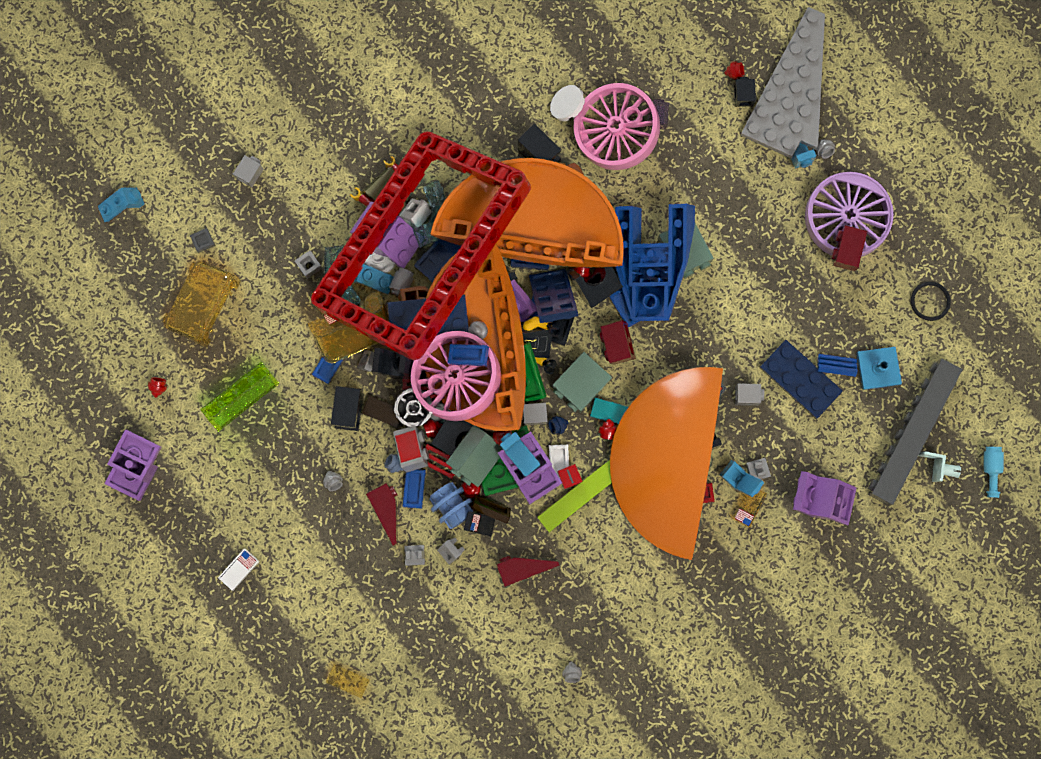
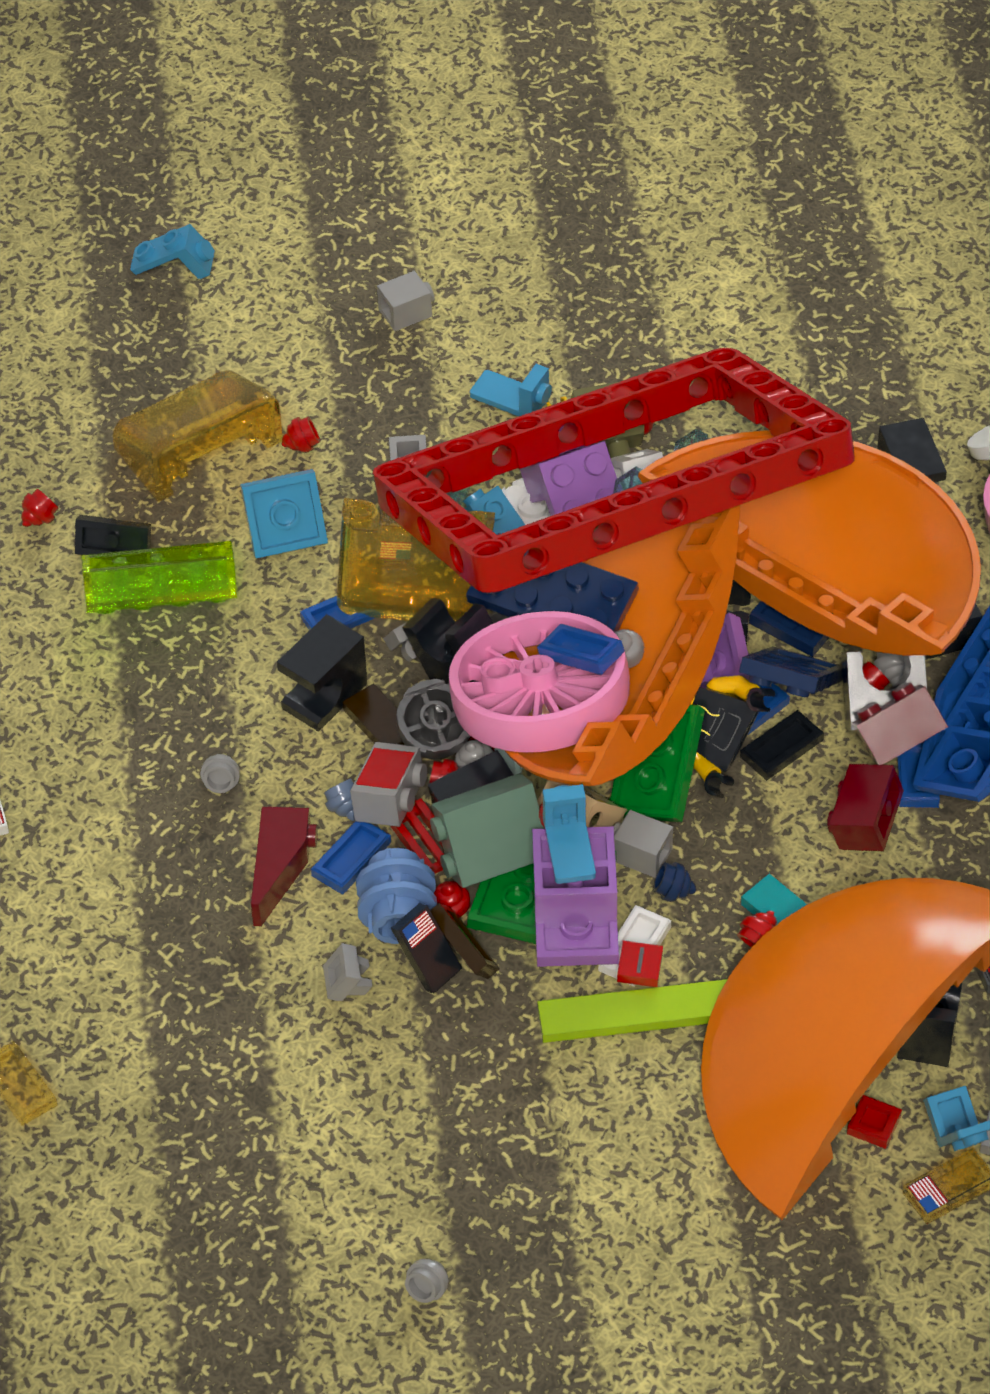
camera: 30 degrees right, 30 degrees down
(202, 240) = (263, 359): dark grey tile -> none
(202, 385) = (109, 535): none -> black hinge
(250, 276) = (301, 435): none -> red plate
(273, 330) = (284, 513): none -> dark azure tile
(330, 197) = (511, 394): none -> dark azure bracket
(414, 555) = (277, 952): light grey tile -> none
(518, 569) = (453, 1064): dark red slope -> none
(581, 383) = (759, 837): sand green brick -> none
(613, 297) = (898, 723): none -> brick

